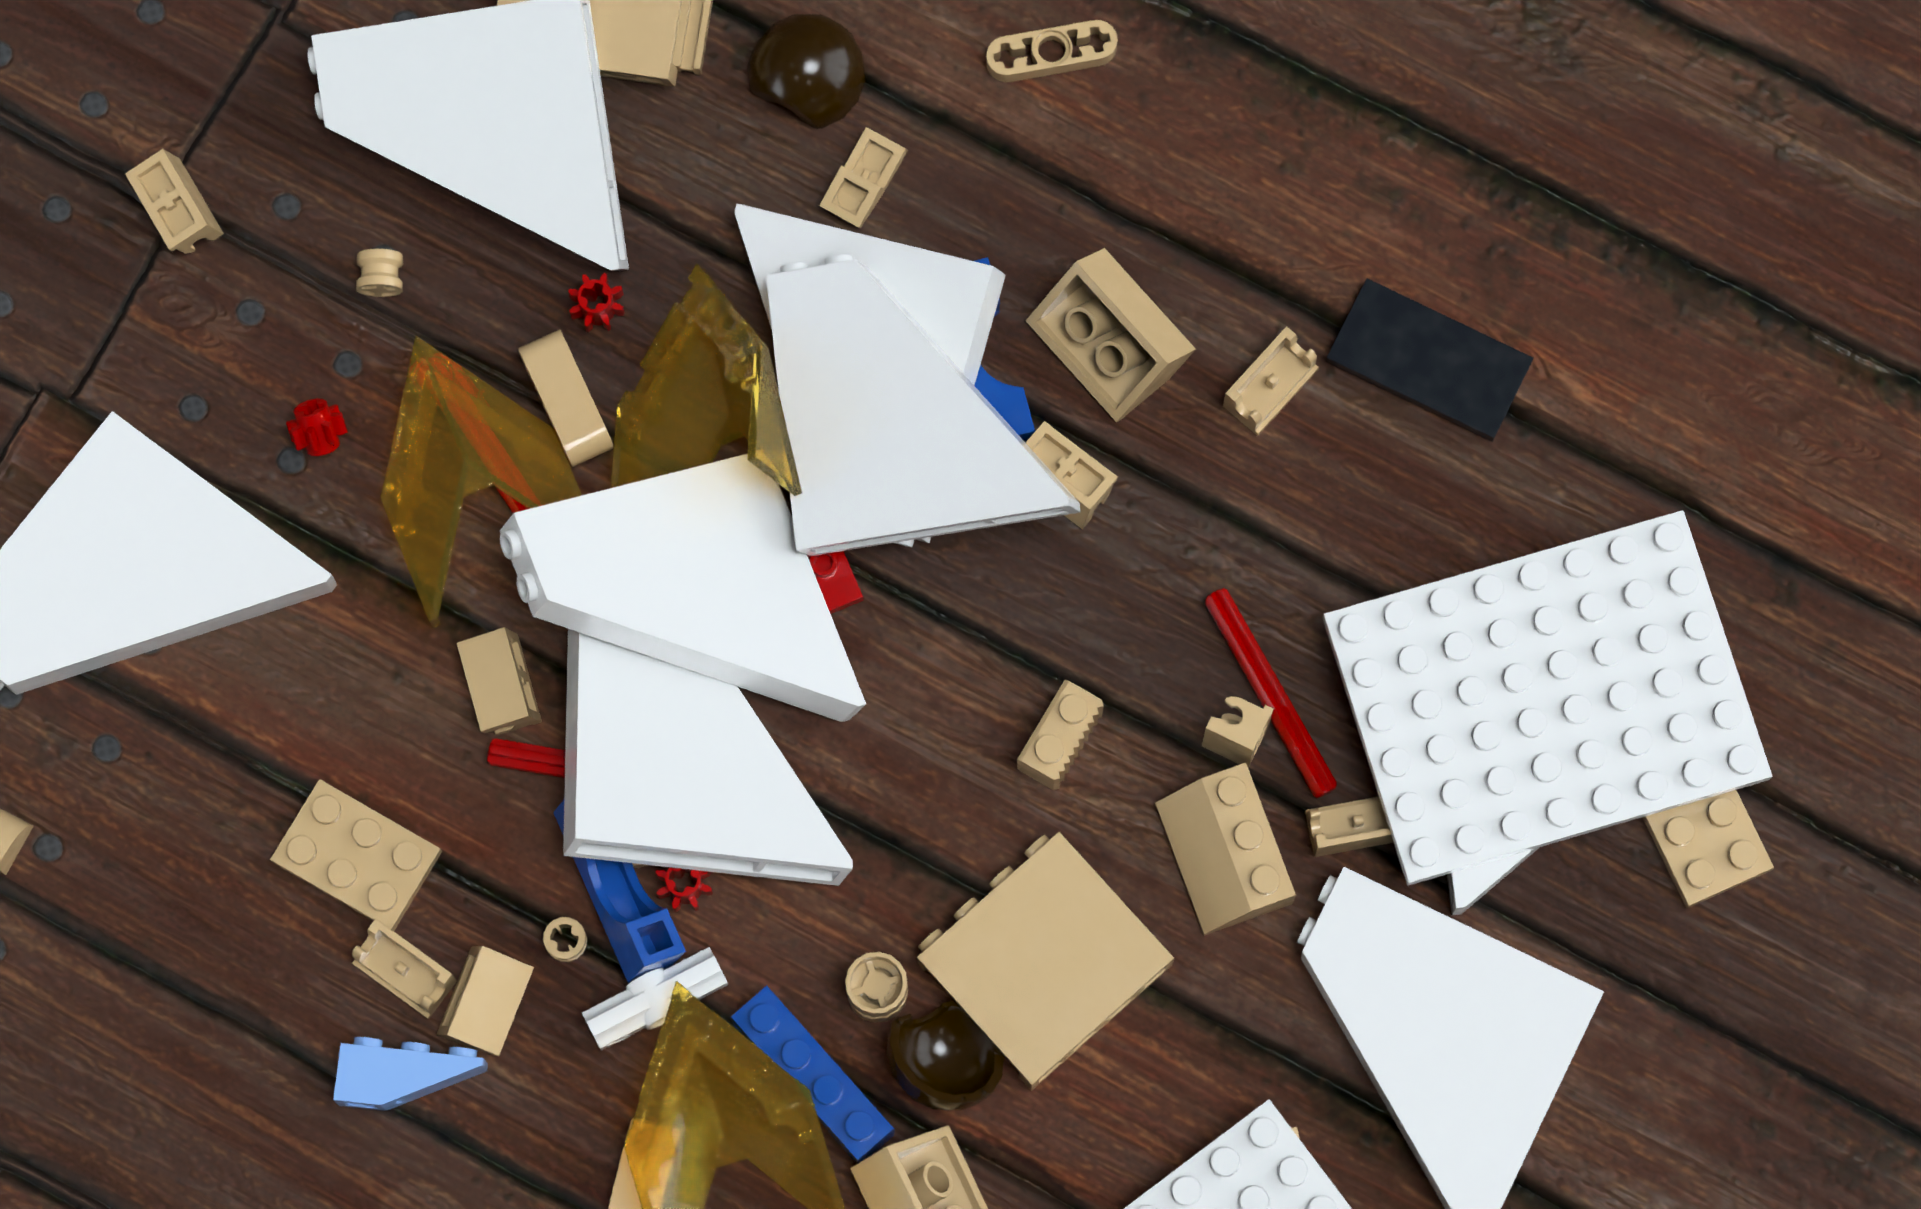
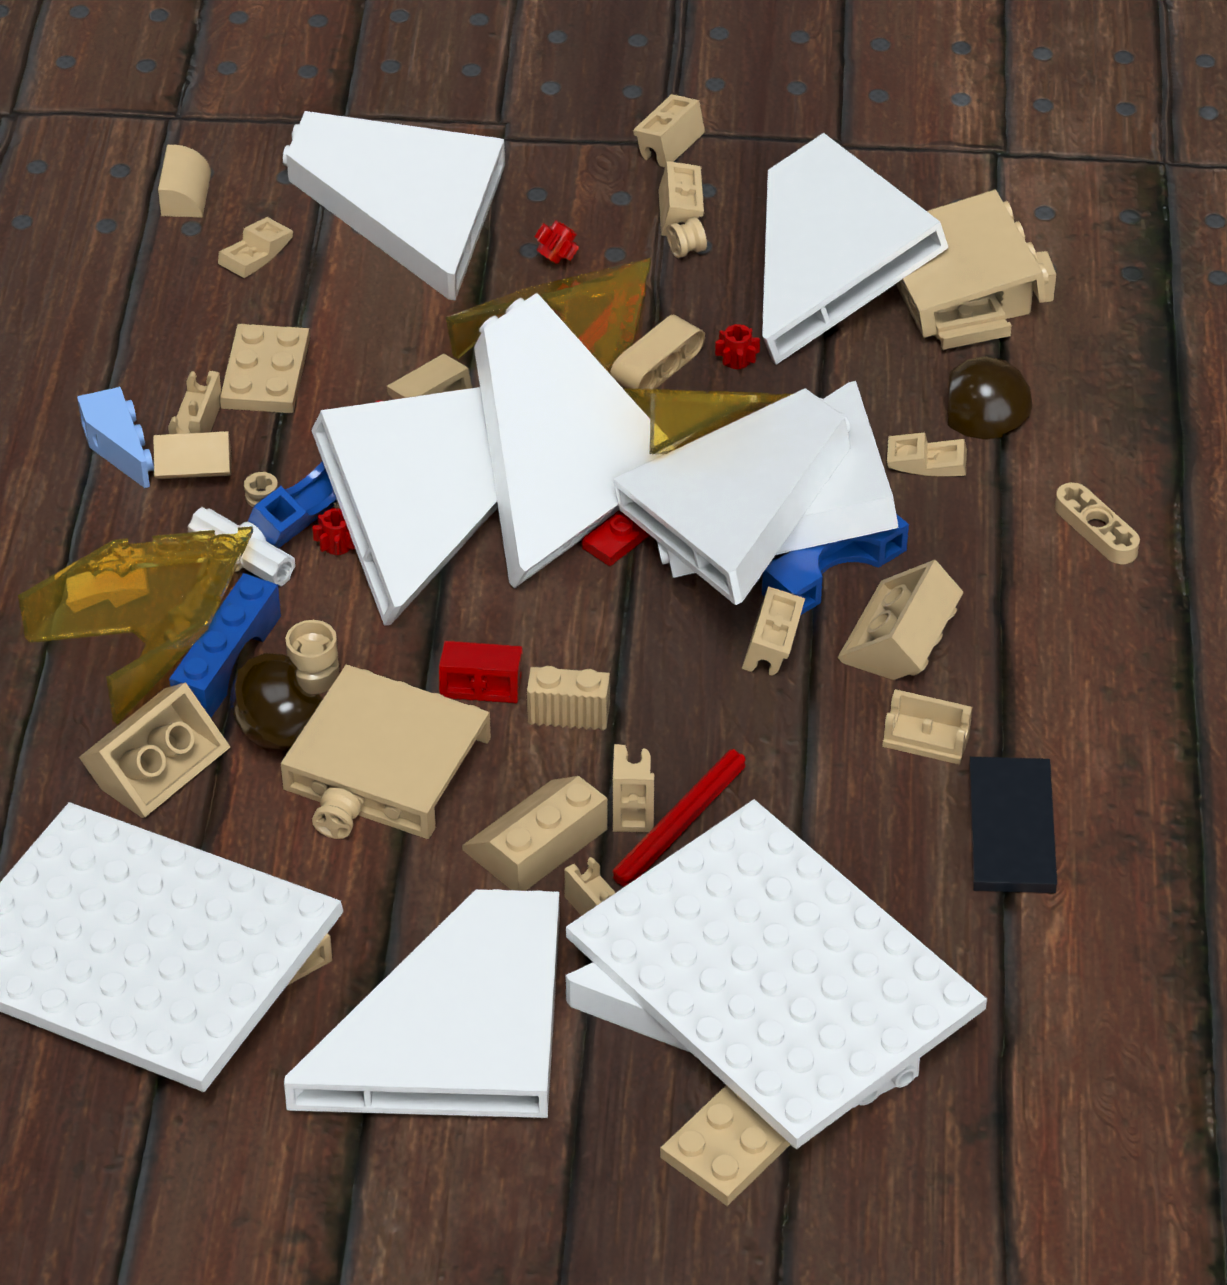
camera: 65 degrees right, 30 degrees down
(133, 784) = (259, 245): none -> tan slope
(308, 248) = (680, 194): none -> tan hinge
(972, 811) = (480, 671): none -> red hinge
(1111, 1050) = (336, 813): none -> tan wheel

